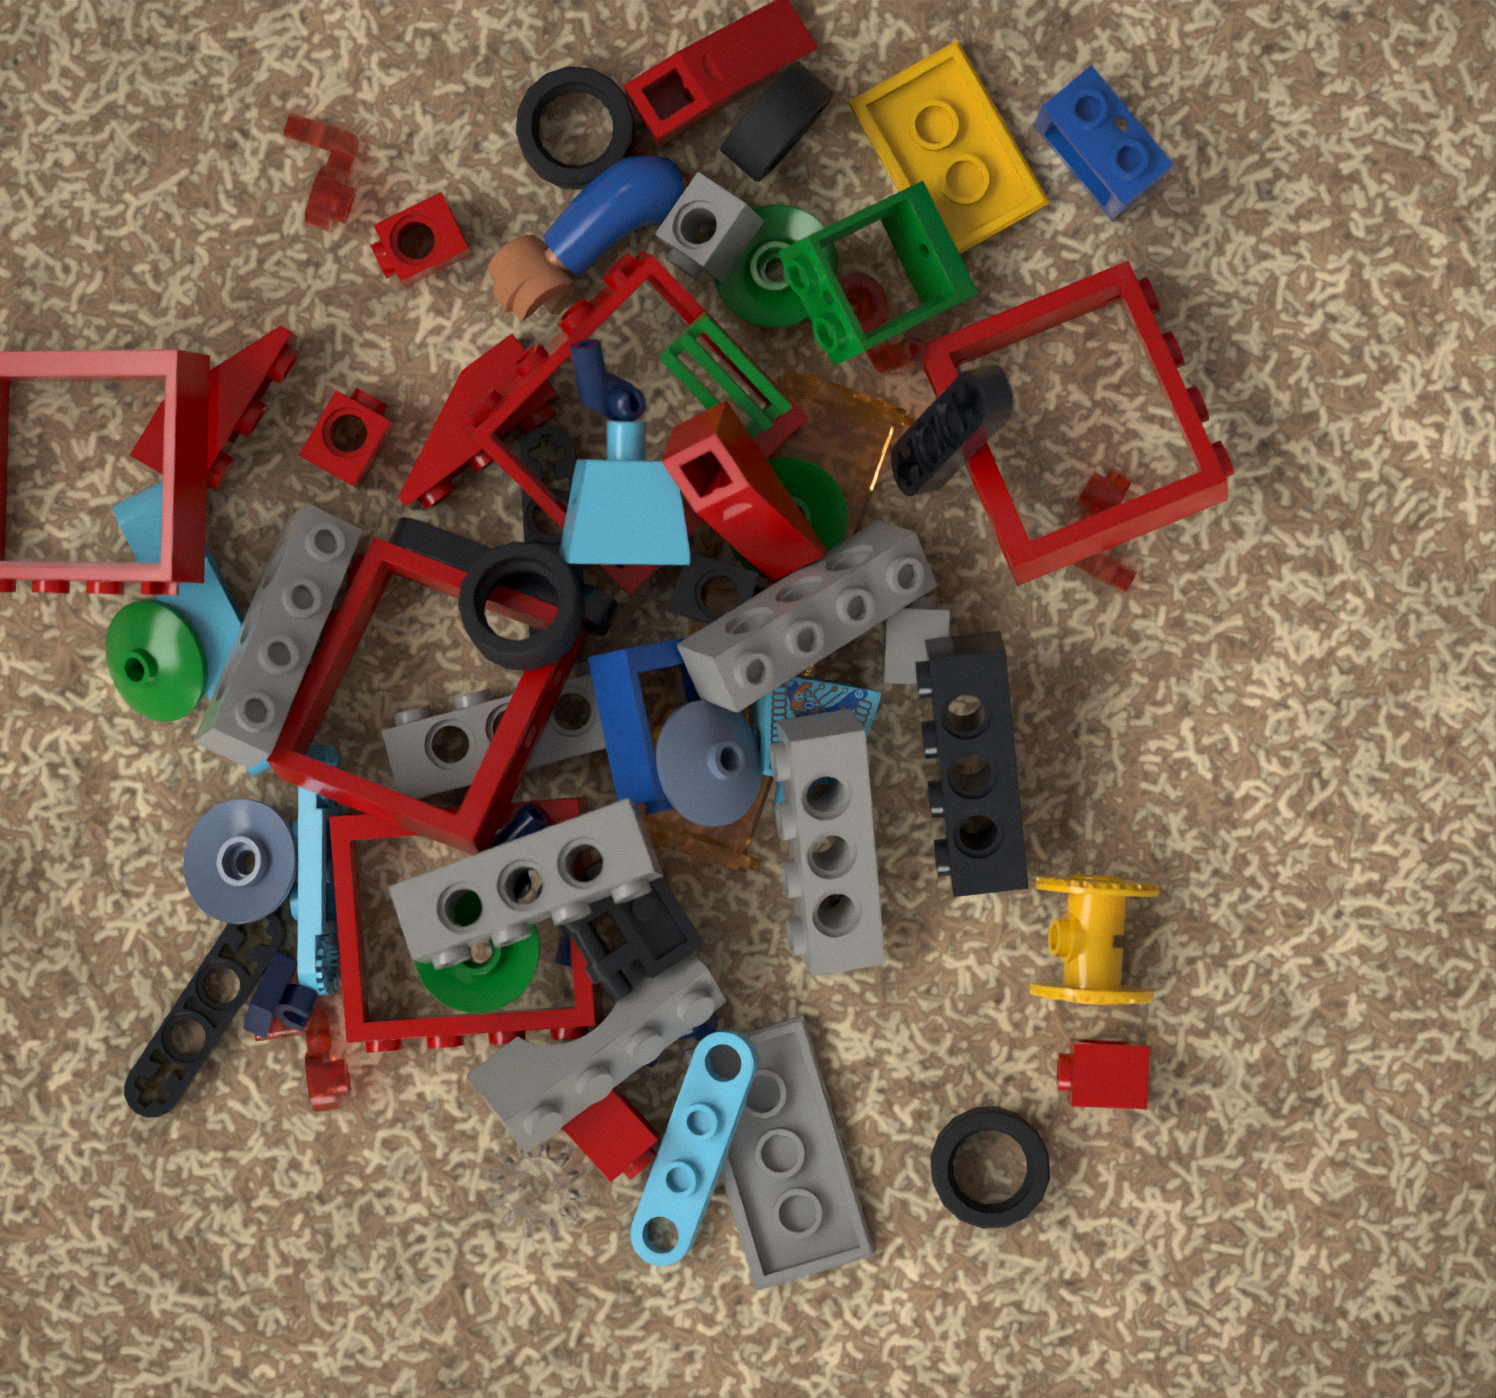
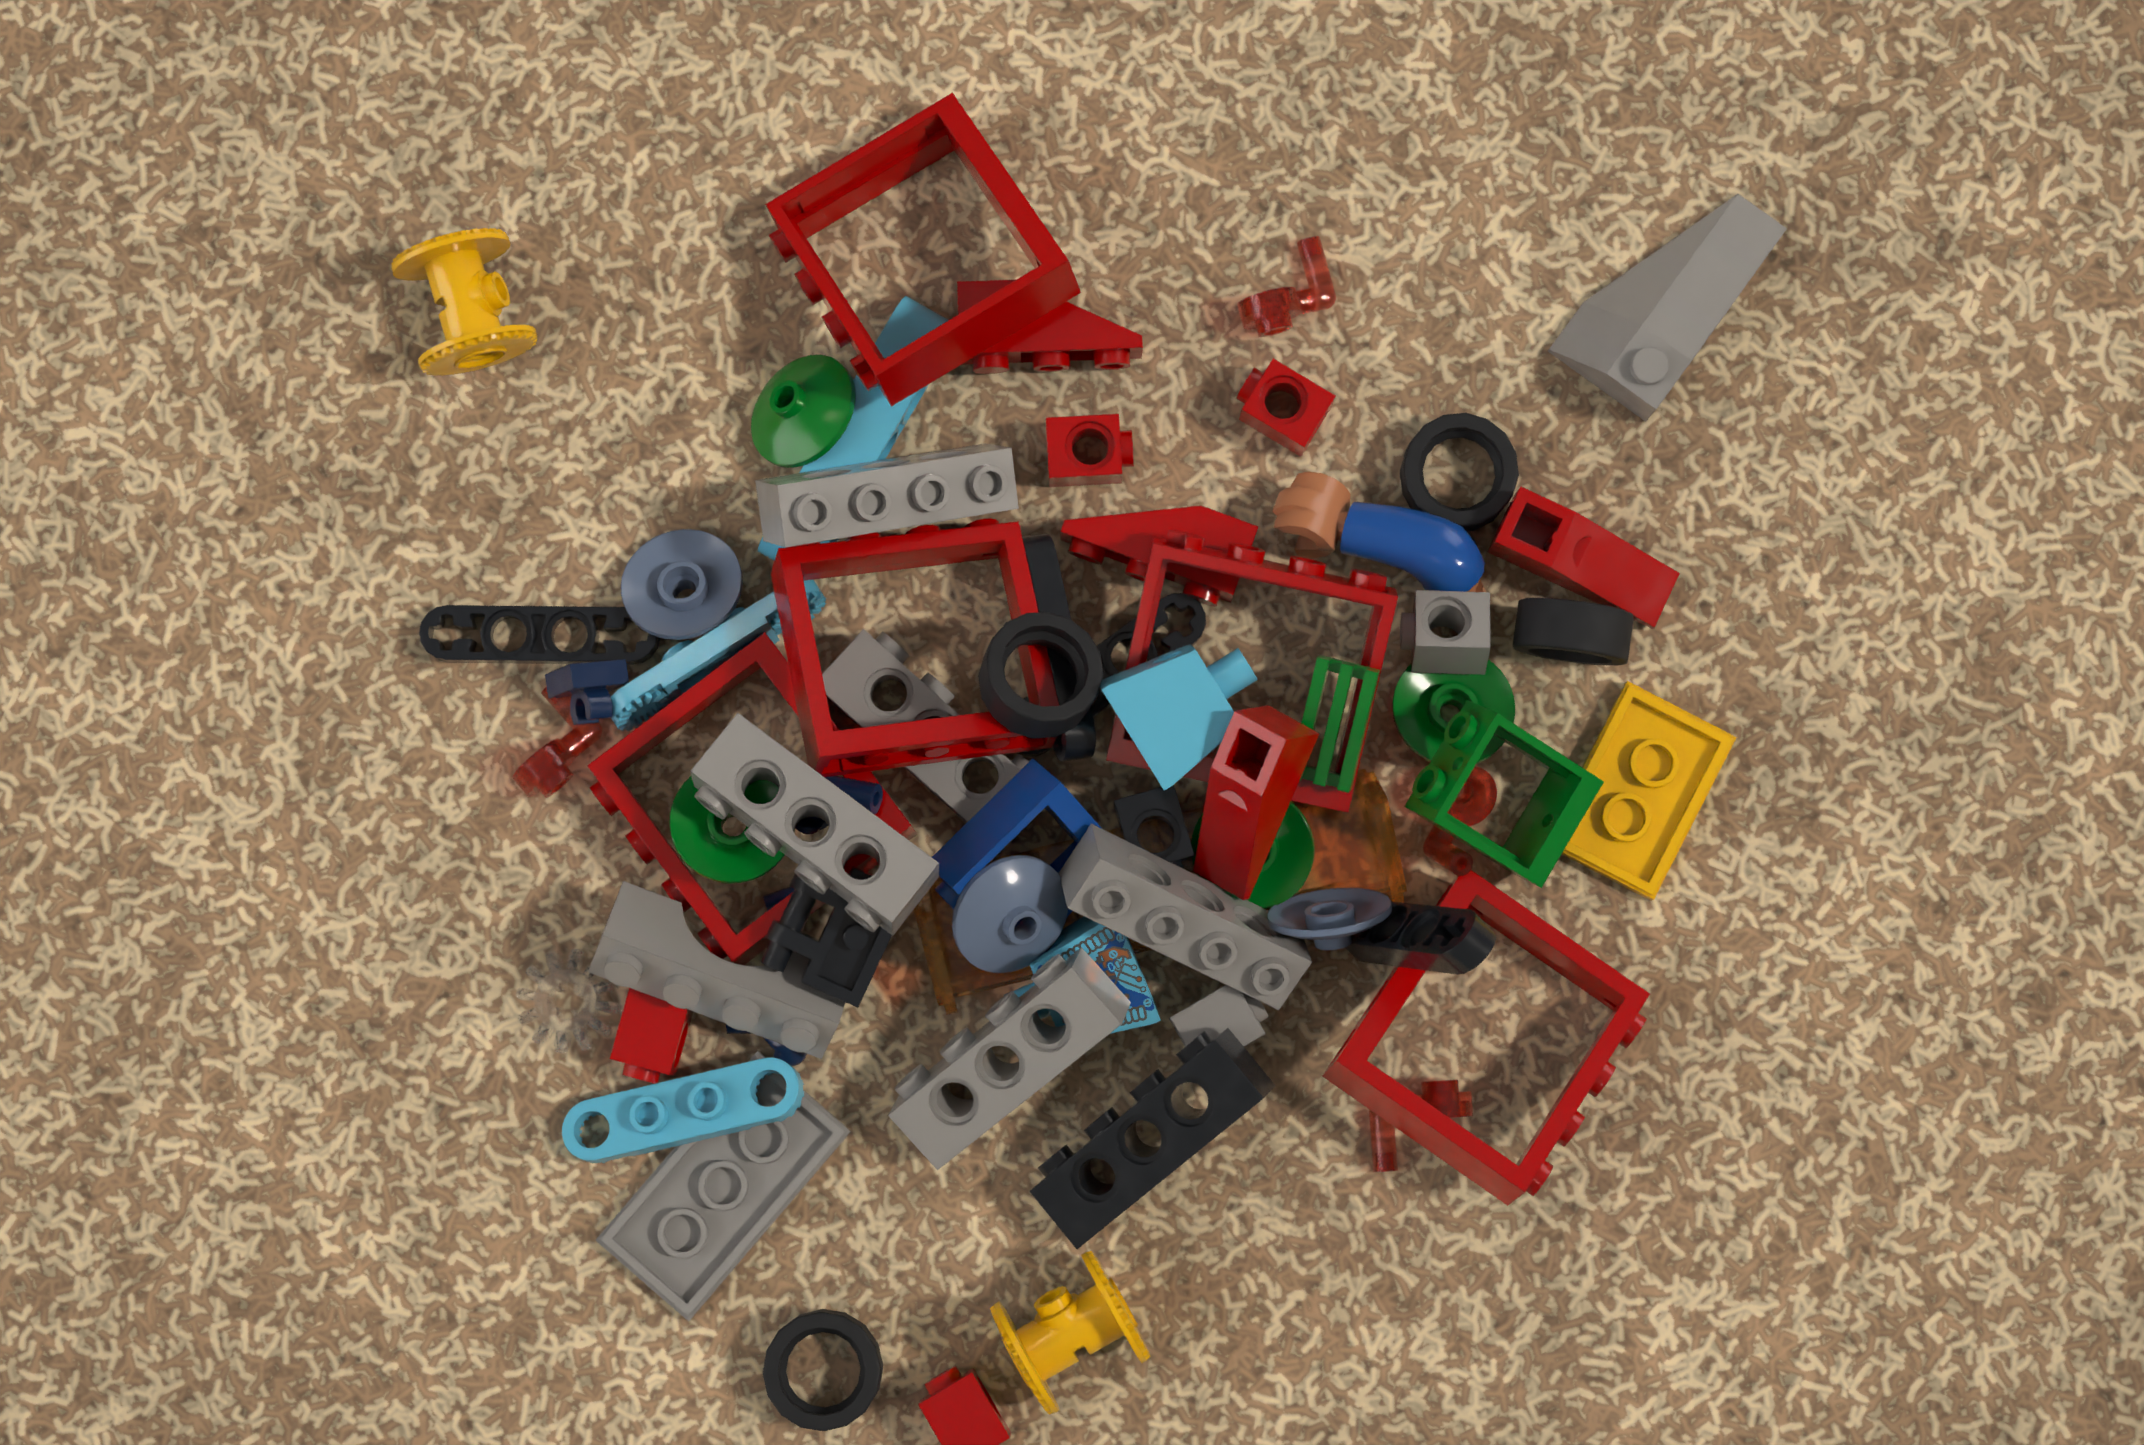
camera: 60 degrees right, 5 degrees down
(601, 389) = (1261, 627): dark blue arm -> none
(885, 490) = (1330, 915): none -> sand blue dish
(1108, 163) = (1720, 923): blue window -> none

